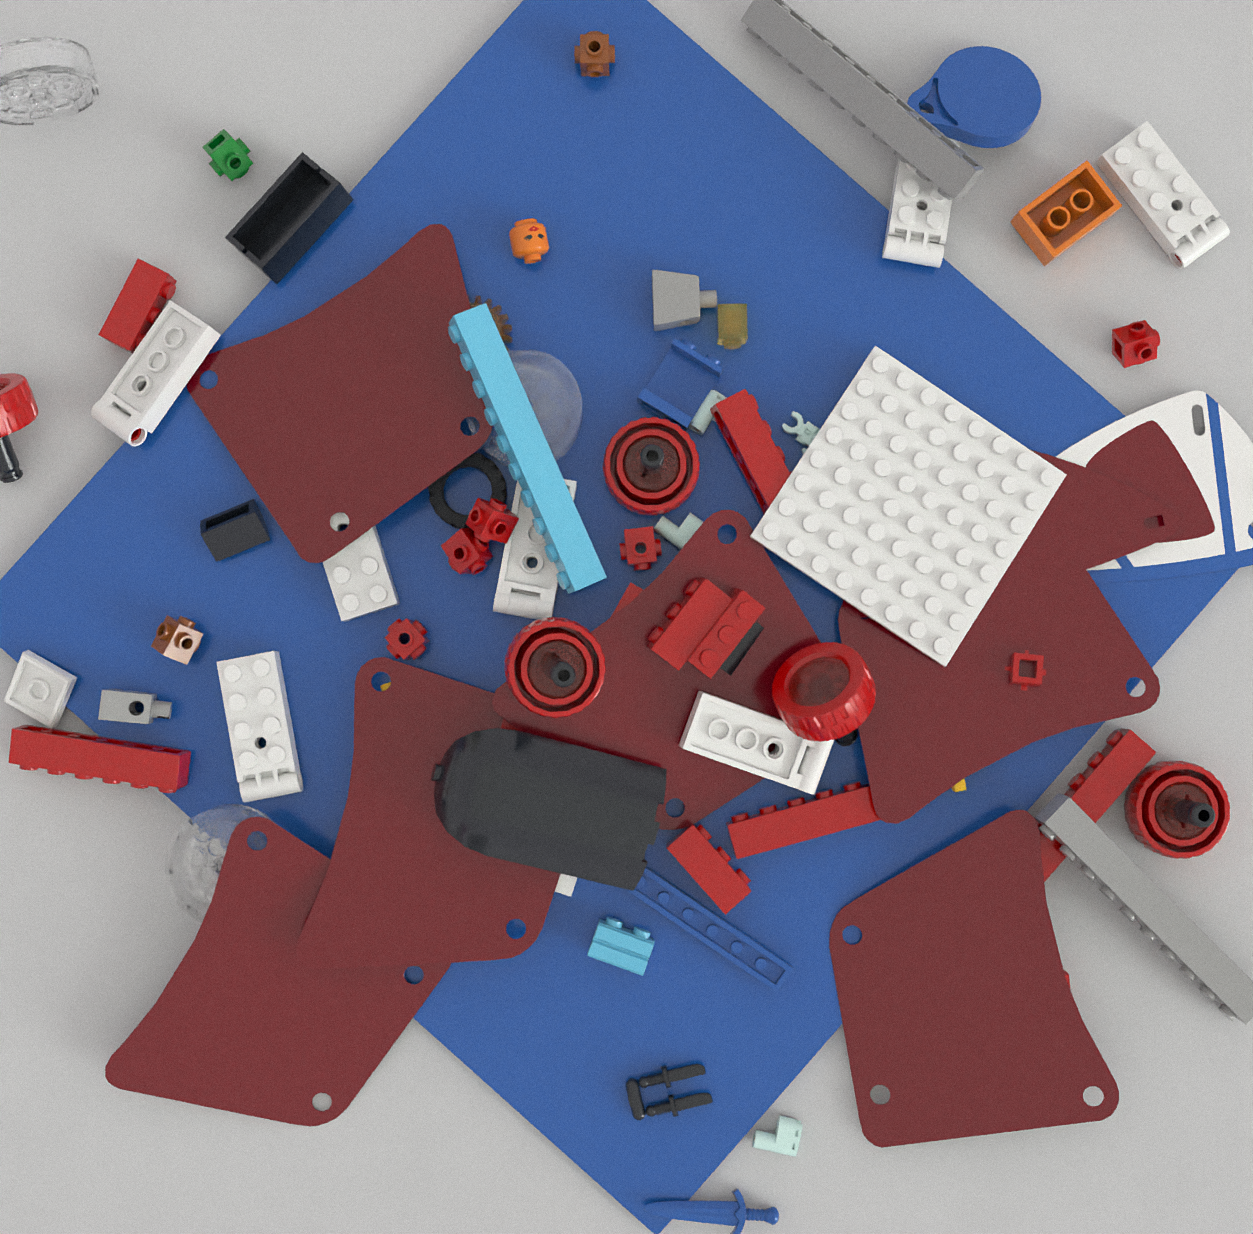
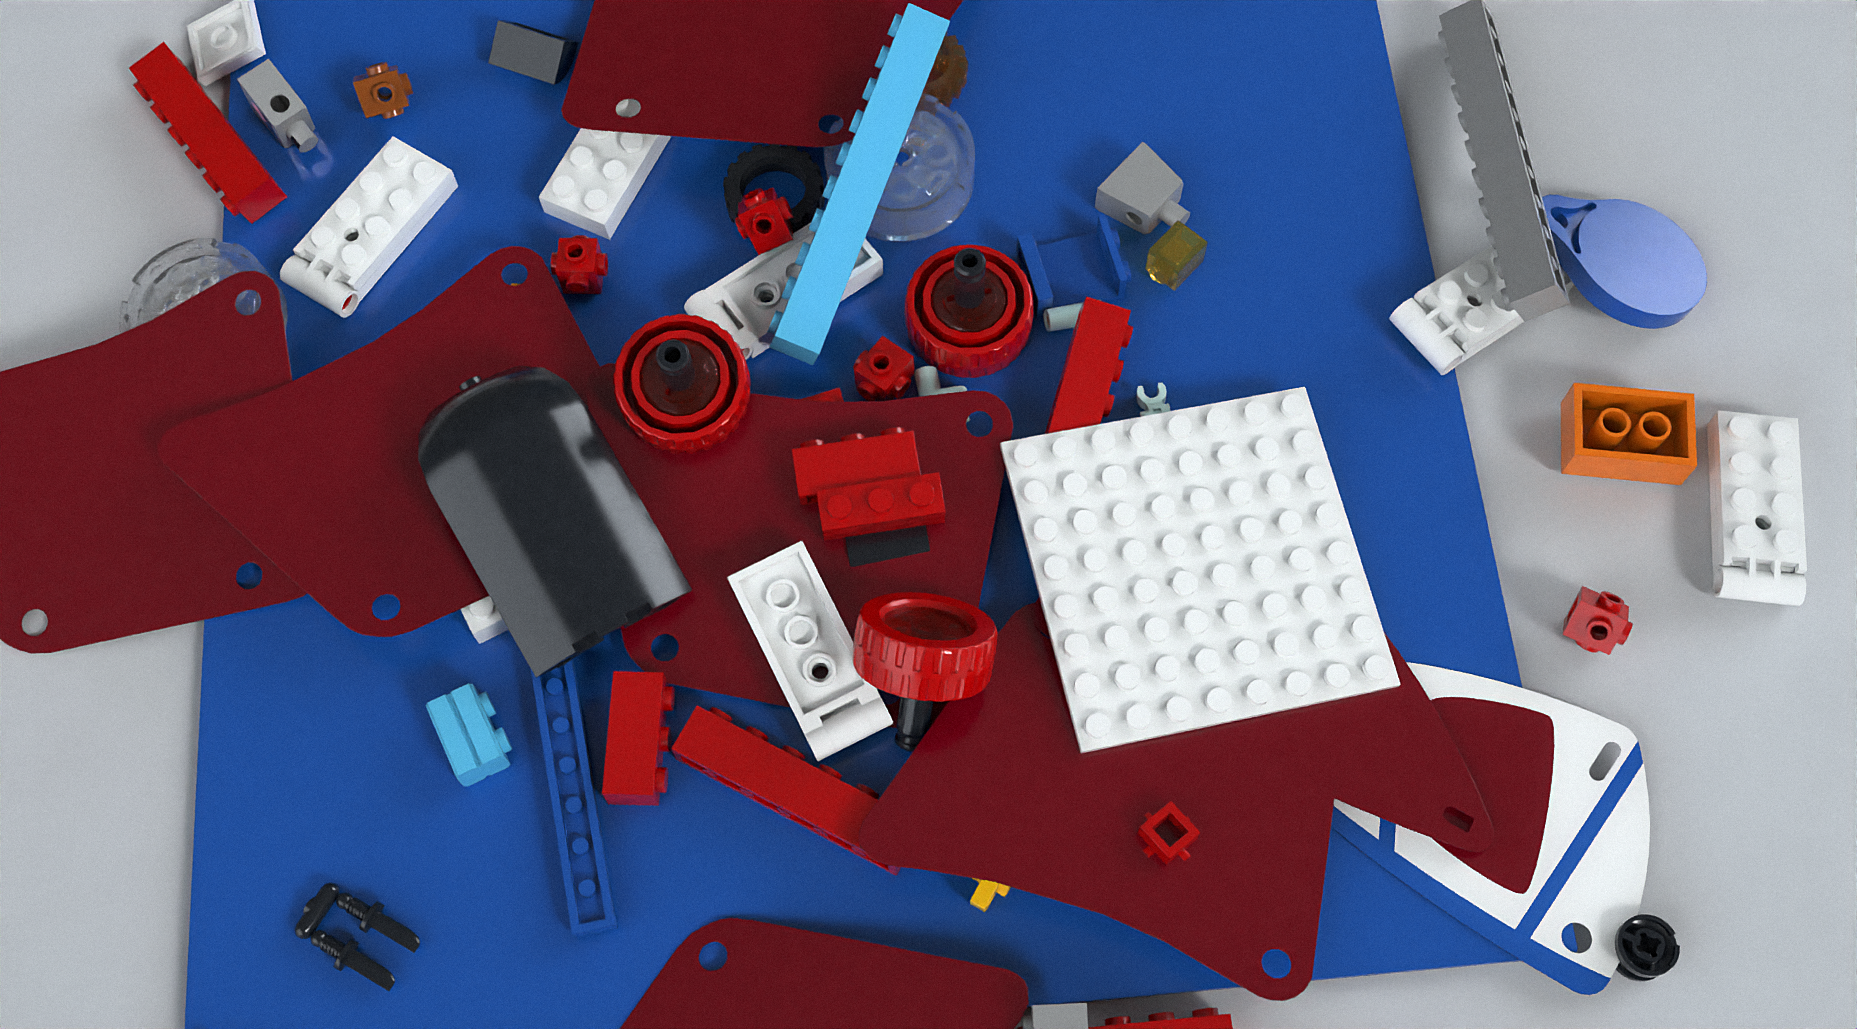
camera: 45 degrees right, 20 degrees down
(467, 552) = (715, 237): red brick -> none
(529, 240) = (1051, 33): orange head -> none

